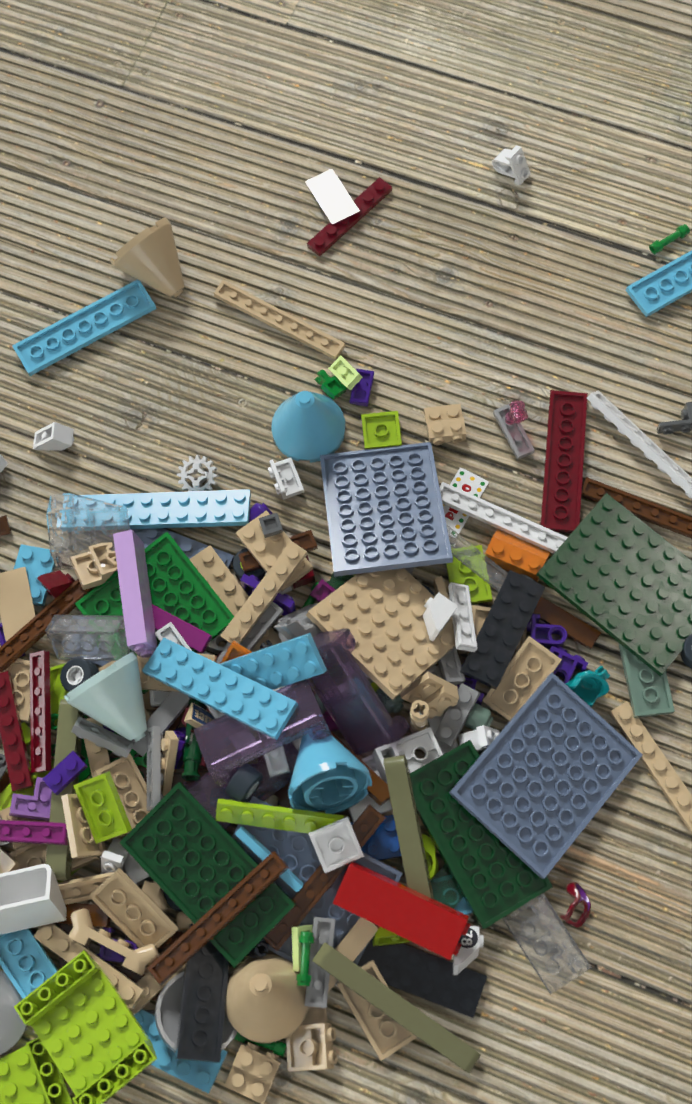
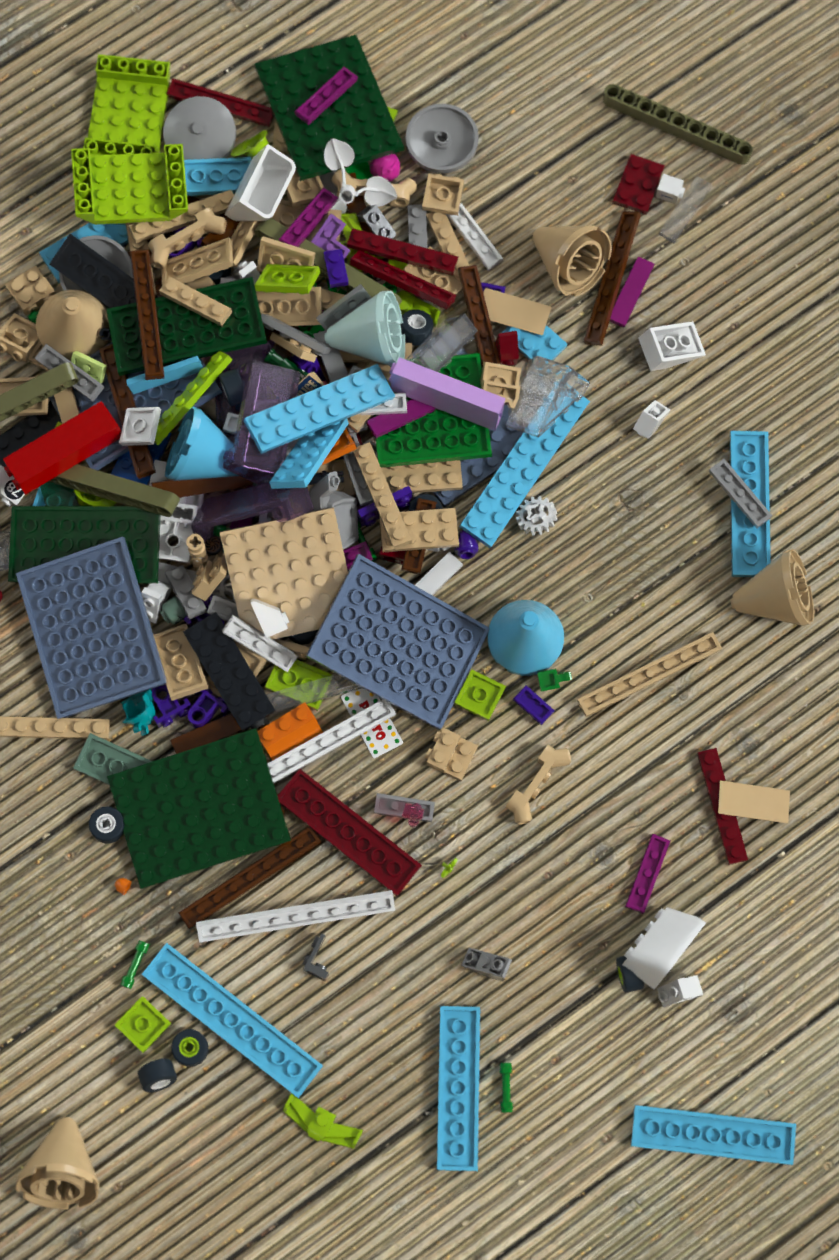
camera: 115 degrees right, 5 degrees up
(81, 333) = (740, 493): none -> light grey plate
(177, 879) = (195, 301): none -> tan plate
(271, 525) = (438, 534): dark grey plate -> none
(286, 477) = (487, 586): white bracket -> none
(300, 523) = (439, 574): none -> white tile
(306, 939) = (89, 368): green bar -> none
(345, 372) = (554, 696): yellowish green plate -> none
(399, 349) = (548, 759): none -> tan plate
(438, 237) = (647, 873): none -> magenta tile
(489, 182) = (662, 945): none -> white windscreen
(525, 201) = (627, 978): none -> black wheel
(537, 370) = (448, 868): none -> lime plant
(591, 296) = (487, 964): none -> light grey slope
(597, 94) = (713, 1135): none -> medium azure plate

